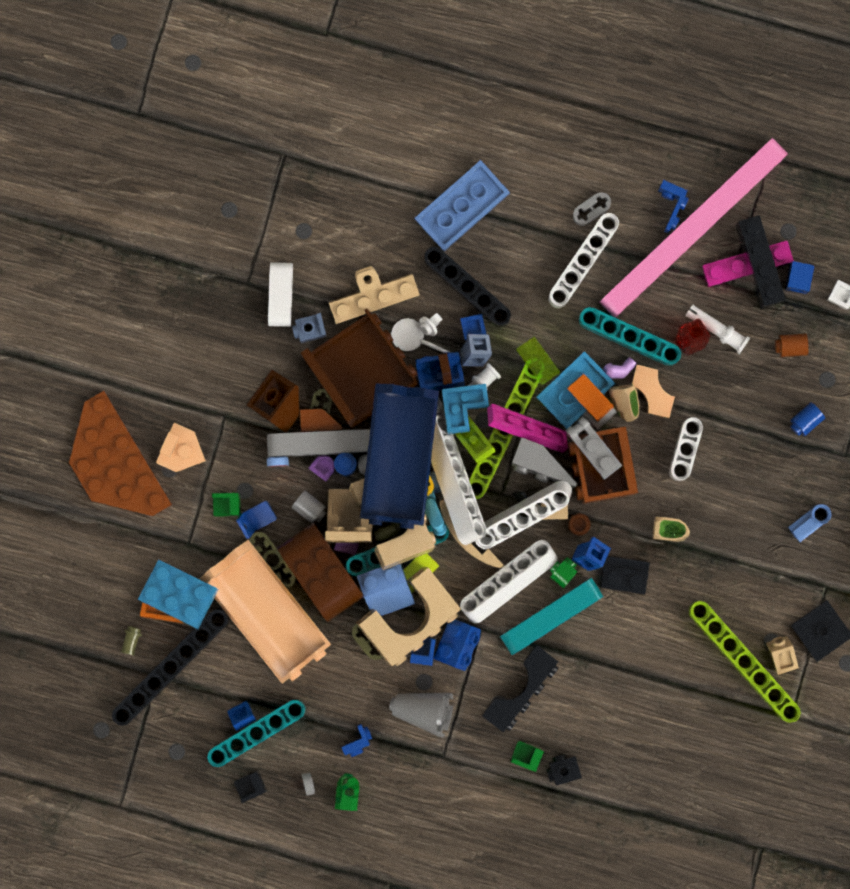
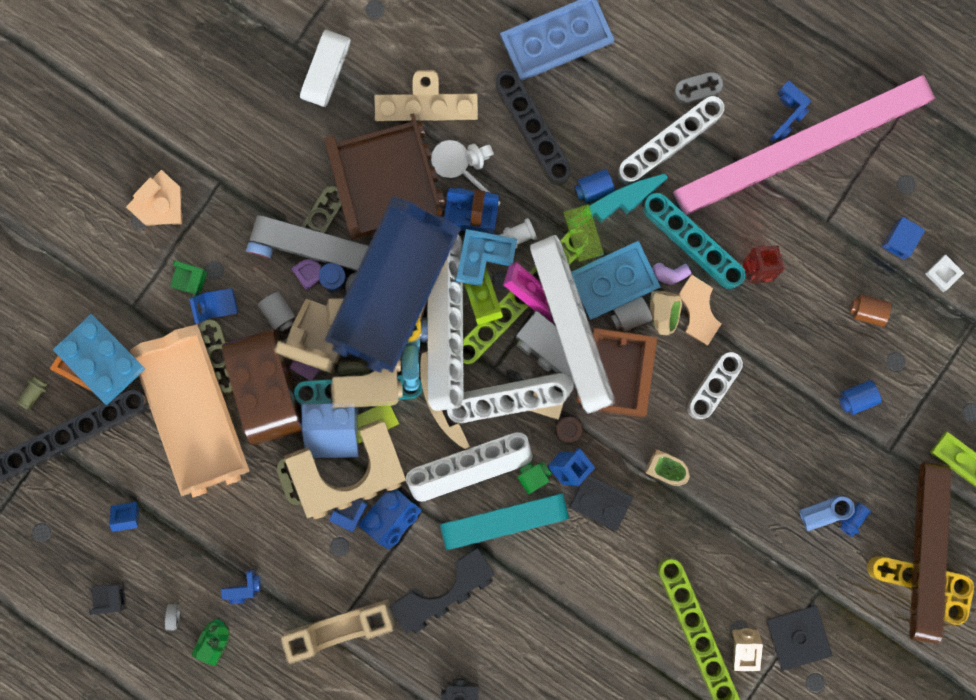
camera: 15 degrees right, 0 degrees up
(111, 462) = (78, 191): dark orange plate -> none
(245, 735) = (122, 546): teal beam -> none
(277, 401) = (281, 184): reddish brown slope -> none
(317, 331) = (351, 122): sand blue brick -> none
(317, 420) = (318, 219): dark orange tile -> none
(424, 710) = (327, 579): light grey cone -> none
(446, 748) = (364, 621): none -> tan arch
(473, 325) = (524, 174): blue plate -> none
(476, 350) = (519, 199): sand blue brick -> none
(526, 756) = (424, 668): green panel -> none
(533, 319) = (594, 186): none -> blue brick
(553, 438) = (572, 324): none -> white beam
(563, 319) = (626, 197): none -> teal slope
(590, 397) = (628, 293): orange tile -> none
(594, 448) = (613, 350): light grey plate -> none
(727, 334) = (802, 274): white pin -> none
(739, 265) = (850, 204): dark pink plate -> none
(762, 264) = (867, 187): black arch -> none
(834, 524) = (853, 523): none -> blue pin

